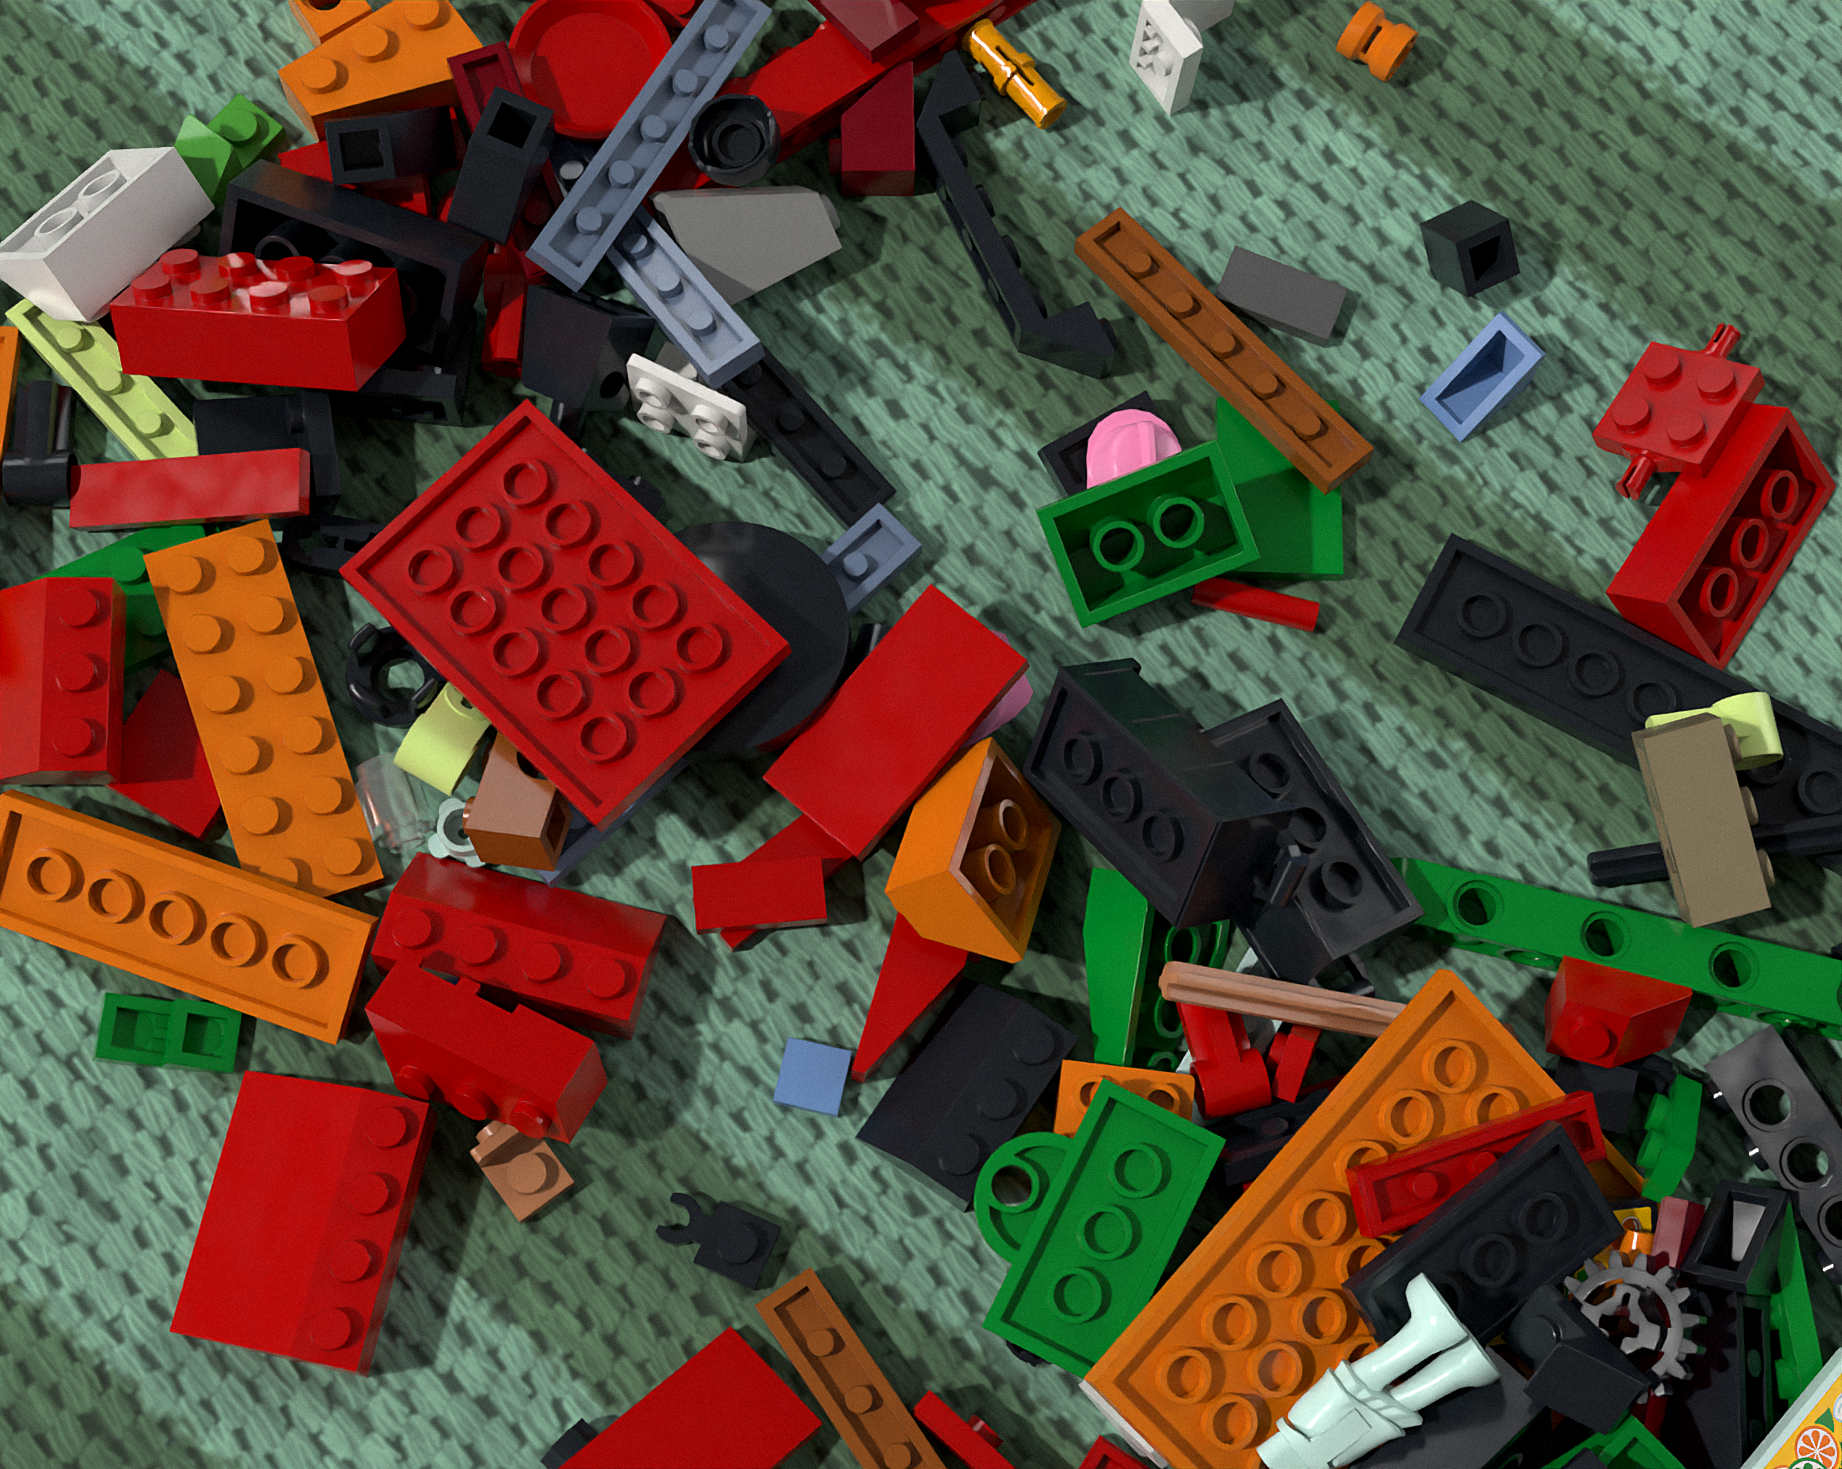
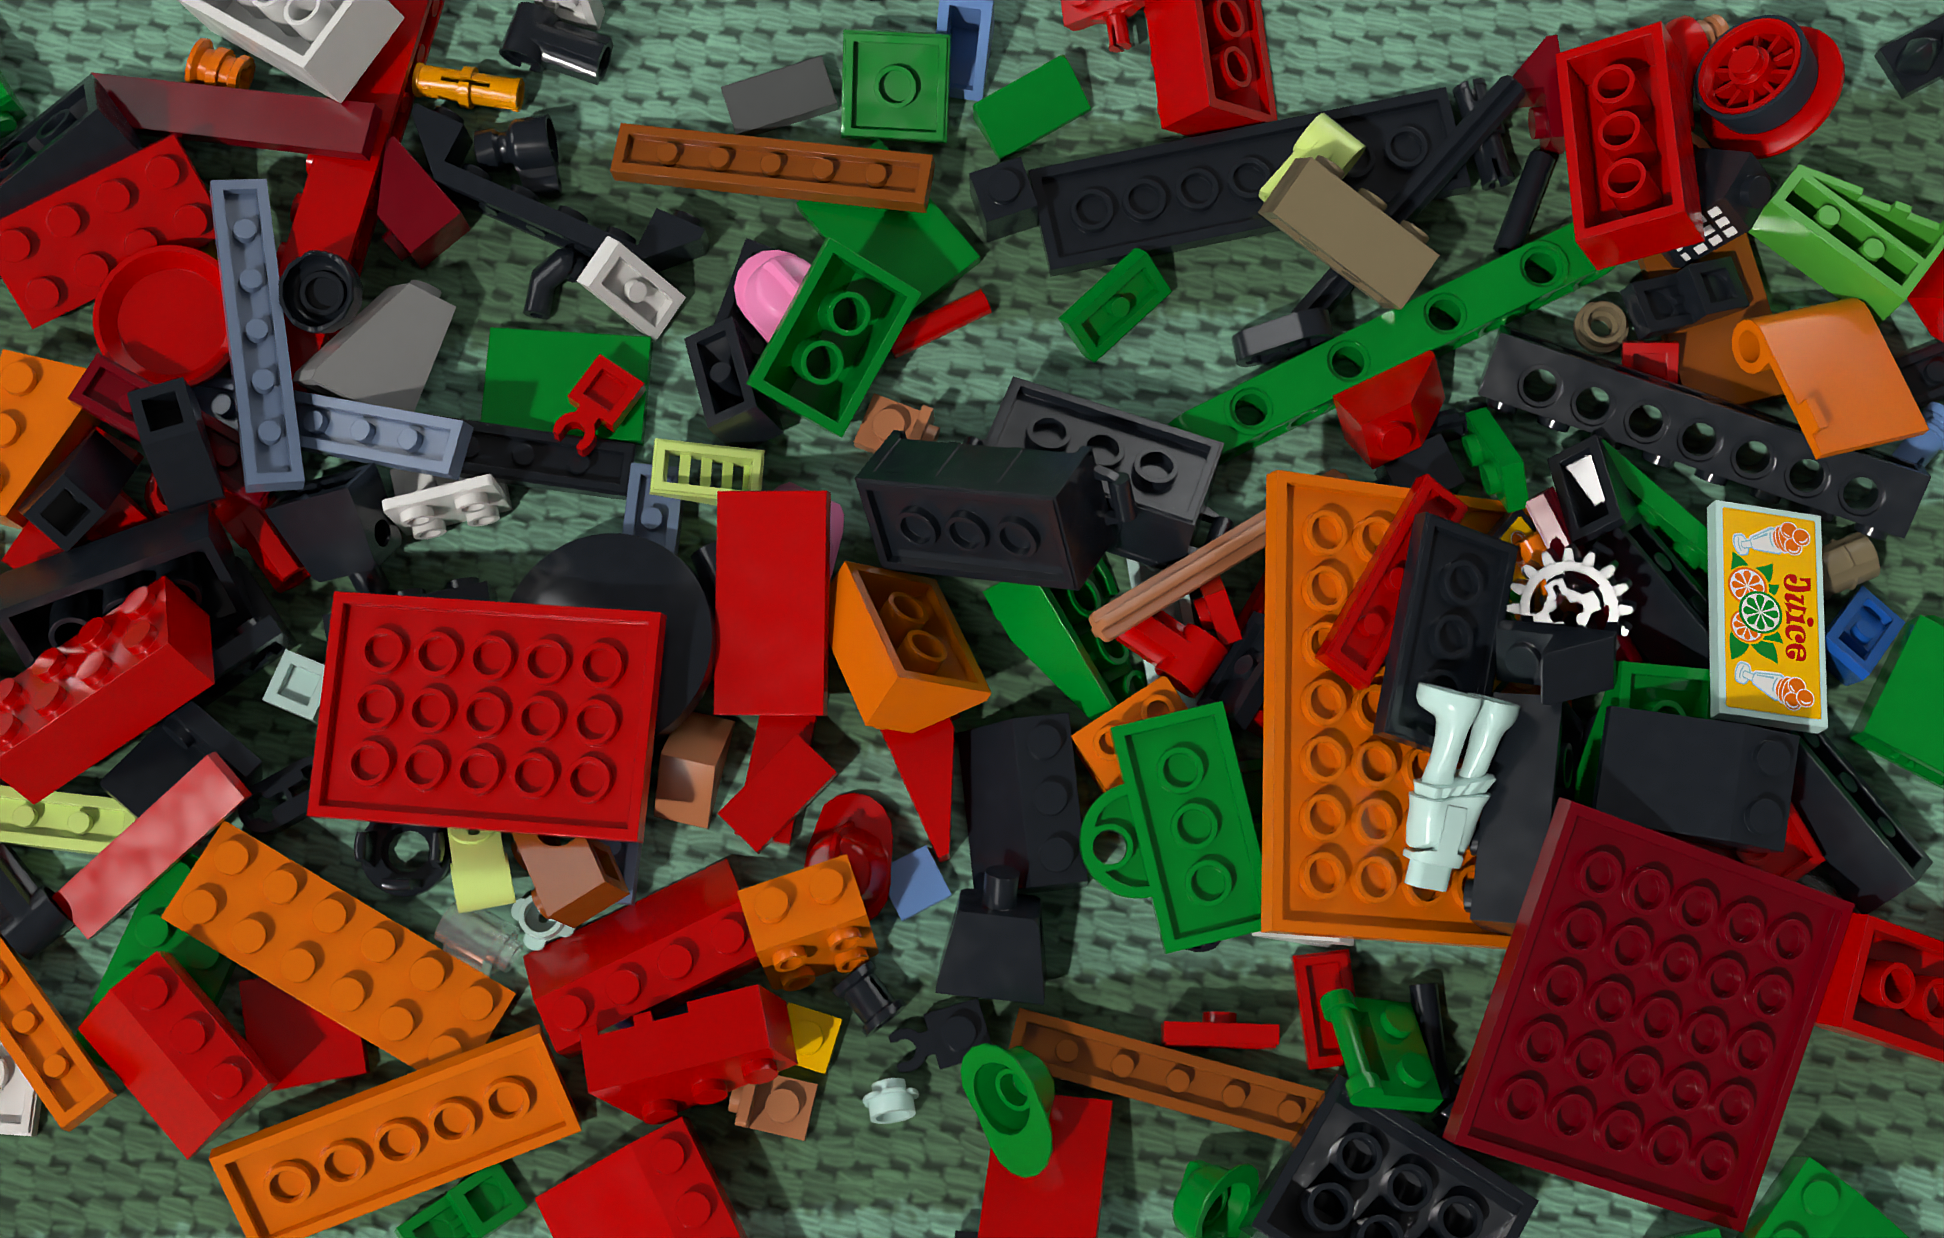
camera: 30 degrees left, 5 degrees up
(427, 456) = (296, 686): none -> light aqua plate
(605, 1136) = (813, 1036): none -> yellow plate
(625, 1253) = (890, 1101): none -> light aqua plate
(684, 1144) = (869, 998): none -> black bush
(685, 1030) = (808, 924): none -> orange bracket
(703, 812) = (692, 769): none -> nougat slope
(731, 1345) = (1013, 1103): none -> green piece
(772, 1009) = (863, 831): none -> red piece
(838, 1190) = (995, 943): none -> black torso
(885, 392) = (537, 369): none -> green tile
(899, 424) = (601, 398): none -> red plate
(945, 286) = (547, 276): none -> black arm
(969, 567) = (749, 459): none -> yellowish green slope
(1006, 351) = (631, 288): none -> white plate
(1006, 525) = (730, 406): none -> black slope
(1019, 162) = (527, 147): none -> black piece
(1114, 86) = (544, 41): none -> black piece
(1143, 645) = (888, 415): none -> nougat bracket
(1393, 365) = (896, 85): none -> green tile
(1406, 540) = (1003, 199): none -> black brick
(1430, 714) = (1115, 304): none -> green plate
(1500, 481) = (1030, 107): none -> green slope
(1561, 866) = (1282, 337): none -> black beam

